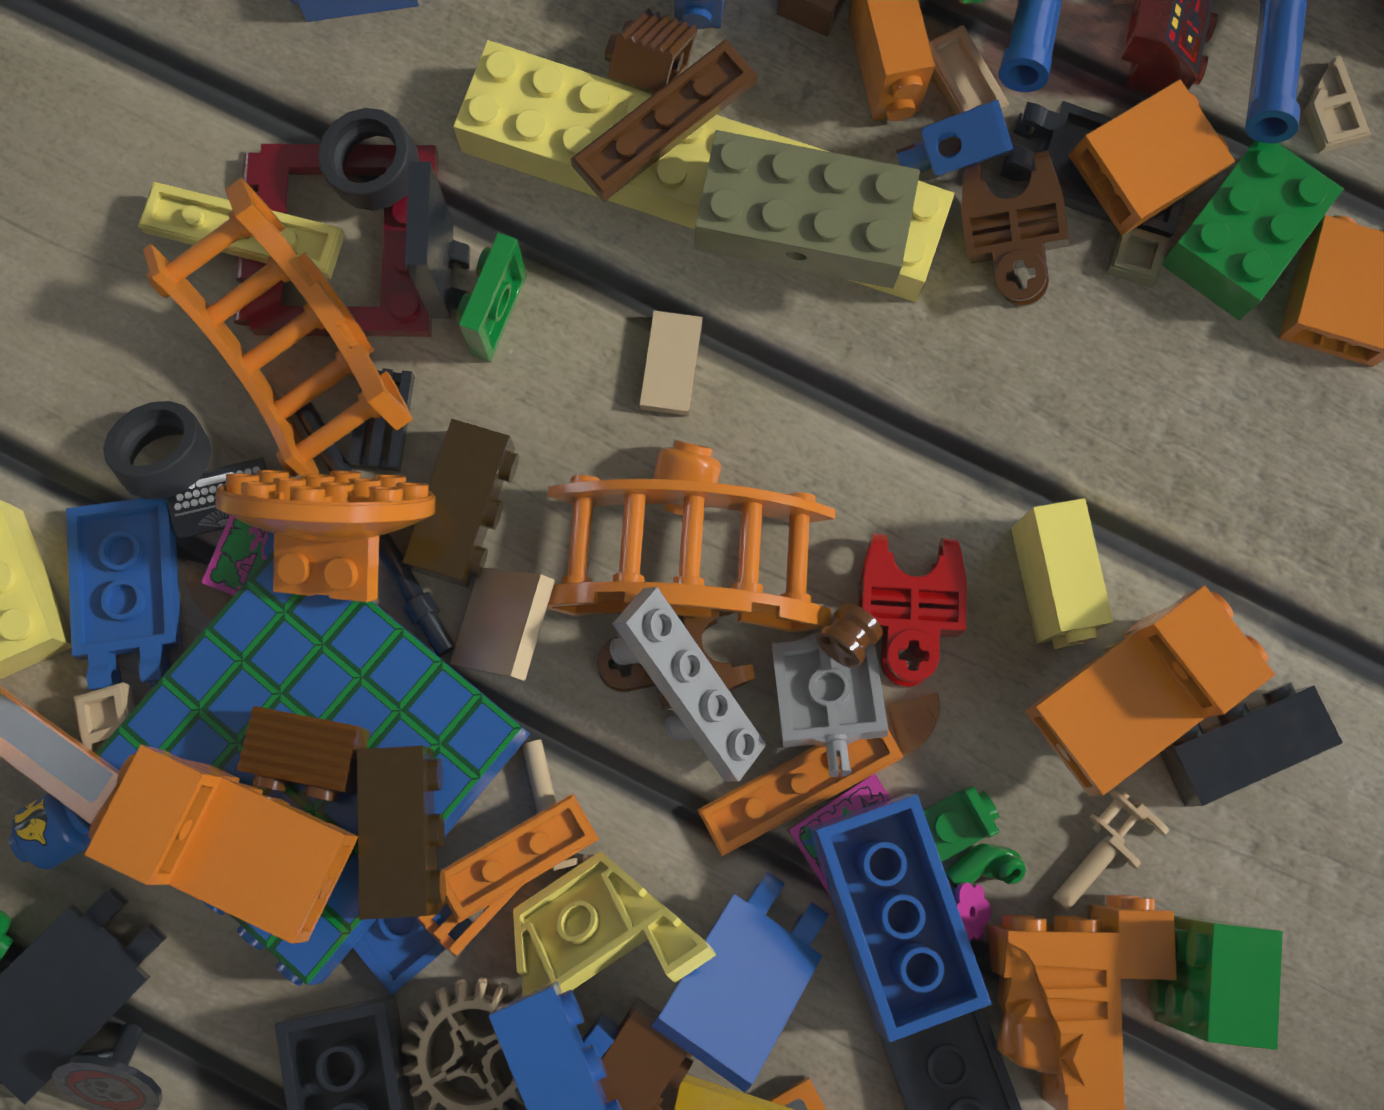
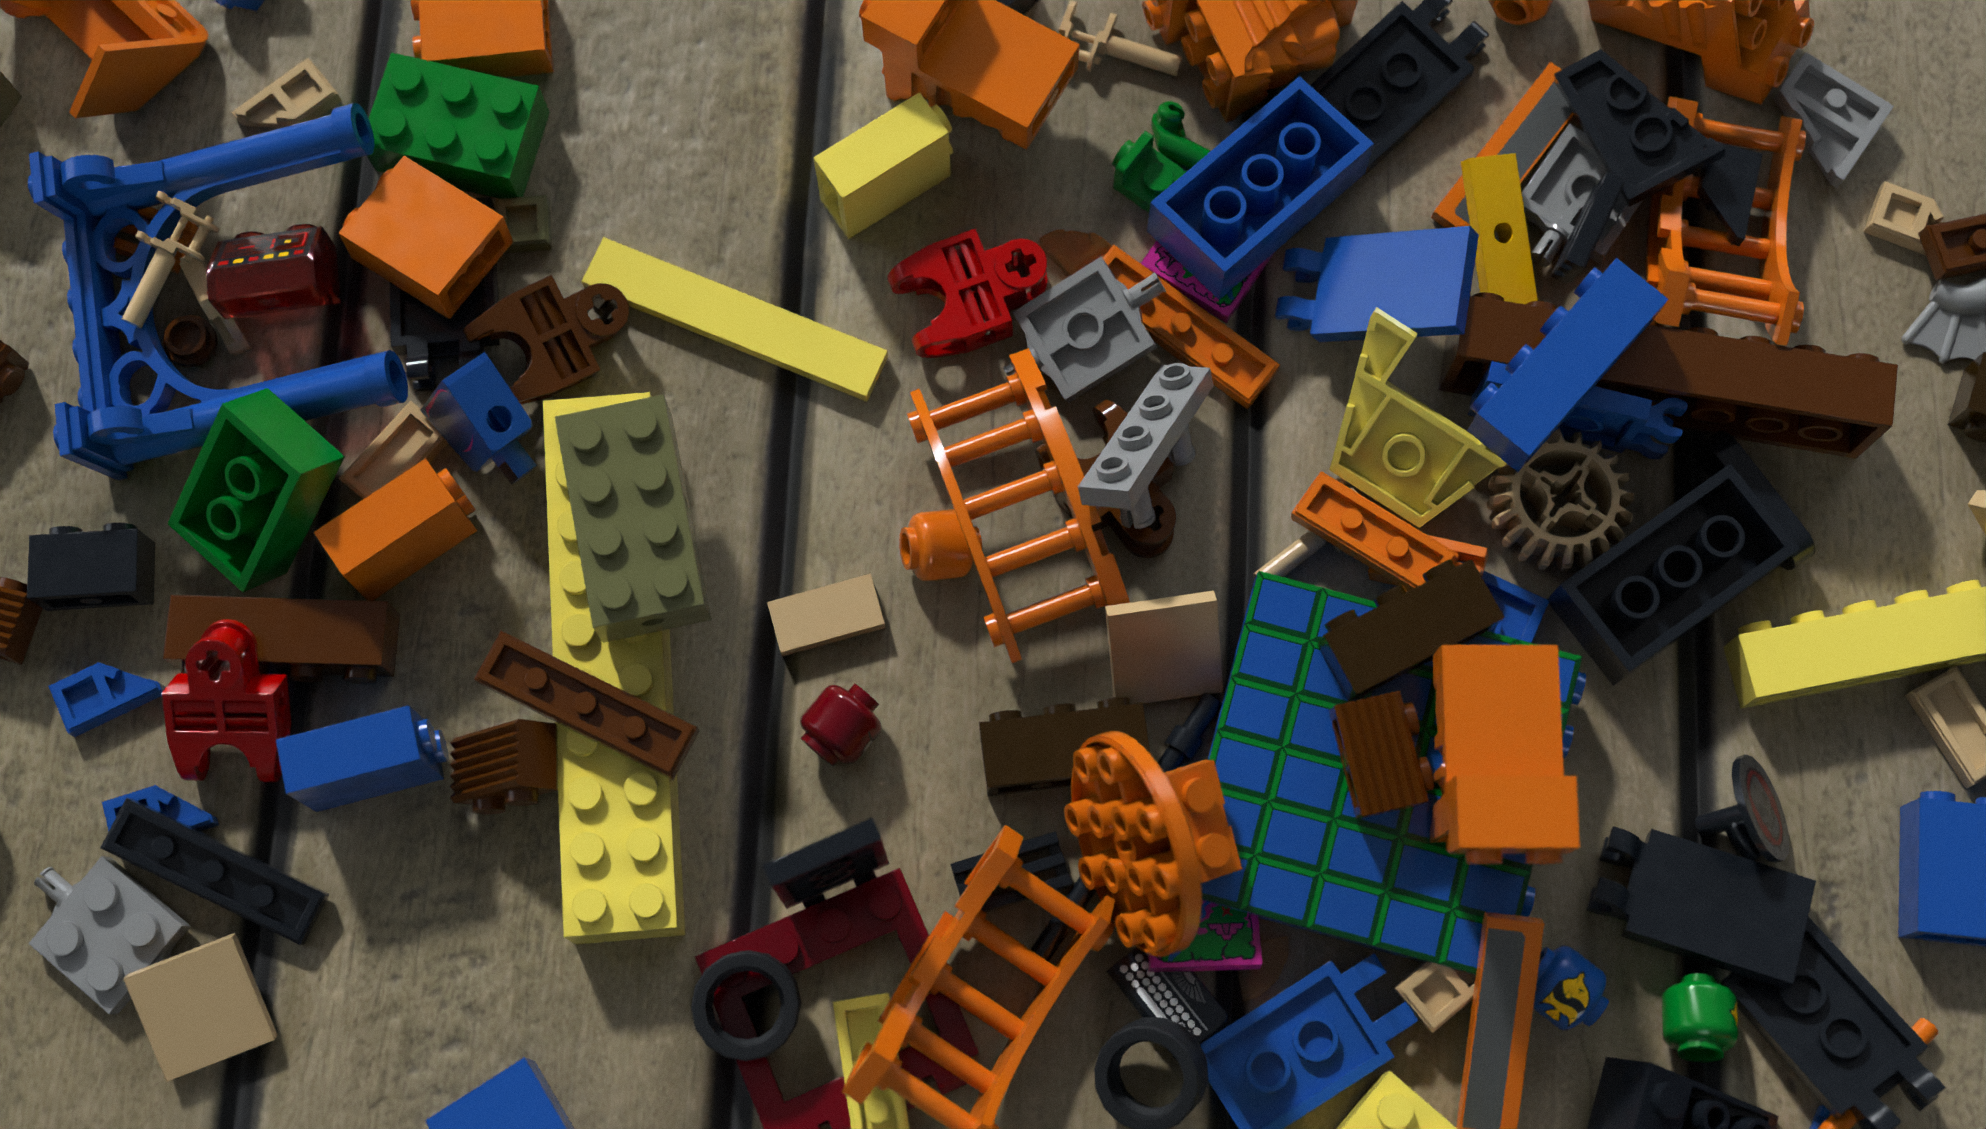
camera: 110 degrees left, 5 degrees down
(489, 306) = (825, 804): green plate -> none
(566, 329) = (841, 724): none -> dark red head
(849, 635) = (1030, 323): reddish brown wheel -> none
(972, 396) = (738, 320): none -> light yellow tile
(973, 909) = (1217, 132): dark pink plant -> none

